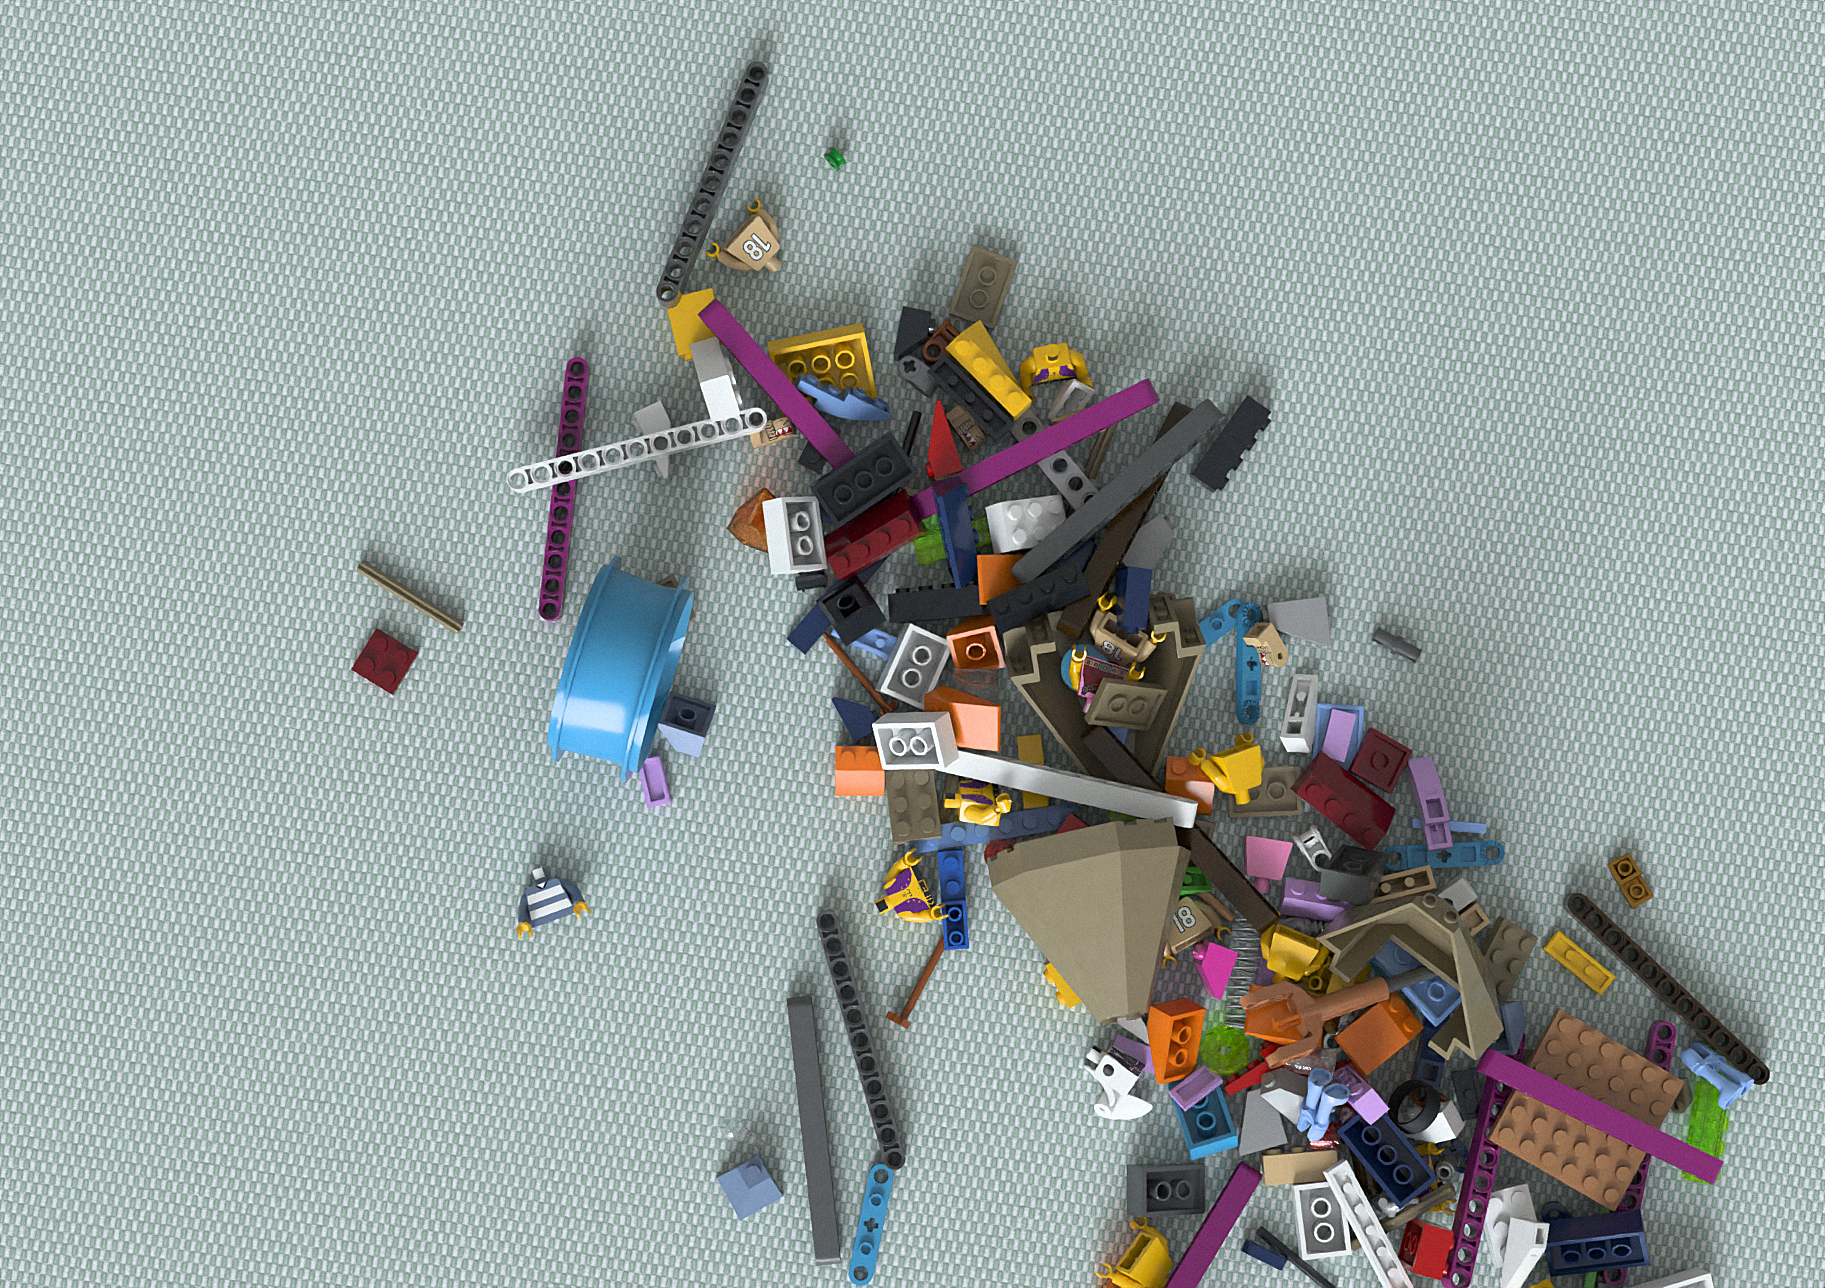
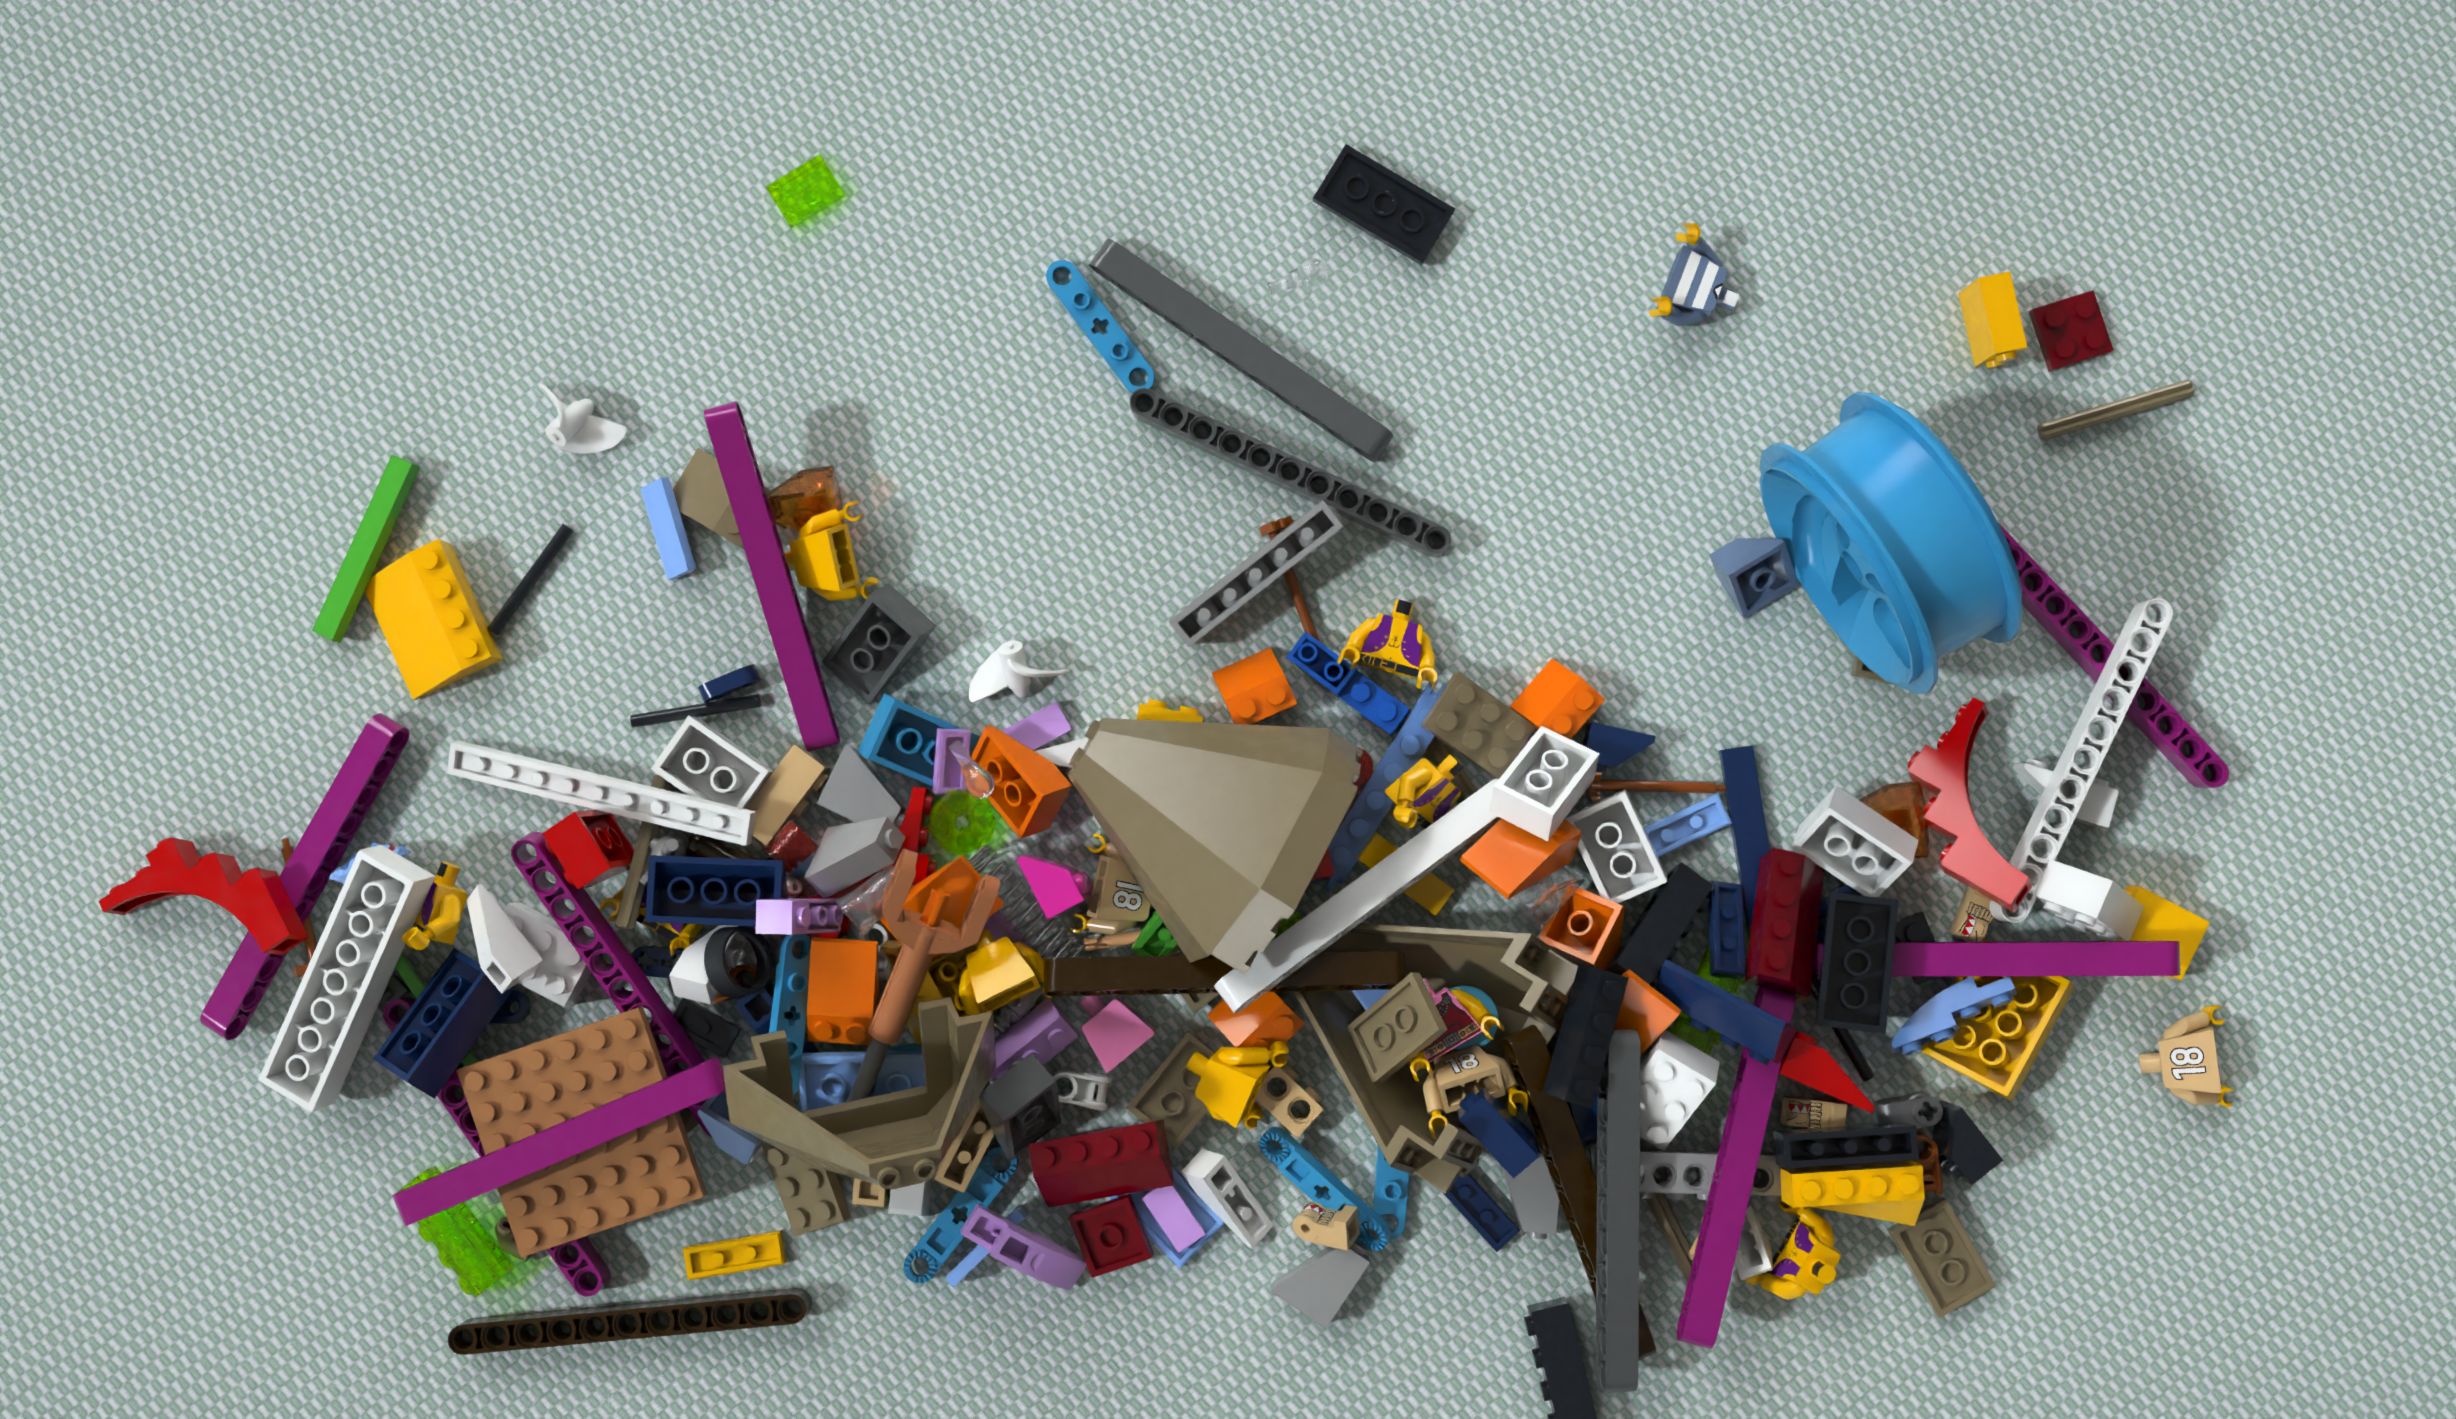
camera: 135 degrees right, 0 degrees up
(423, 712) = (1992, 320): none -> yellow brick
(654, 782) = (1722, 492): lavender tile -> none
(656, 1122) = (1383, 204): none -> black plate
(712, 173) = (2301, 1082): dark grey beam -> none
(729, 496) = (1971, 856): none -> arch
(749, 1186) = (1240, 242): sand blue slope -> none
(810, 581) = (1789, 819): black pin -> none
(834, 158) = (2205, 1222): green bush -> none
(851, 610) = (1727, 834): black slope -> none
(906, 564) = (1726, 931): none -> dark blue tile
(937, 1007) = (1256, 573): none -> light grey brick
(1002, 950) = (1254, 688): none -> orange slope
(1116, 1068) = (1039, 697): white torso -> none
(1183, 565) = (1482, 1211): none -> dark blue tile
(1193, 1062) = (977, 779): none -> clear piece
(1224, 729) = (1280, 1104): none -> tan brick
(1319, 1113) = (815, 858): light blue piece -> none
(1396, 645) = (1211, 1357): dark grey pin -> none
(1406, 1059) = (792, 996): none -> dark azure piece
(1446, 1168) = (650, 938): light grey pin -> none
(1630, 881) = (769, 1380): pearl gold slope -> none
(1705, 1062) = (522, 1293): light blue piece -> none

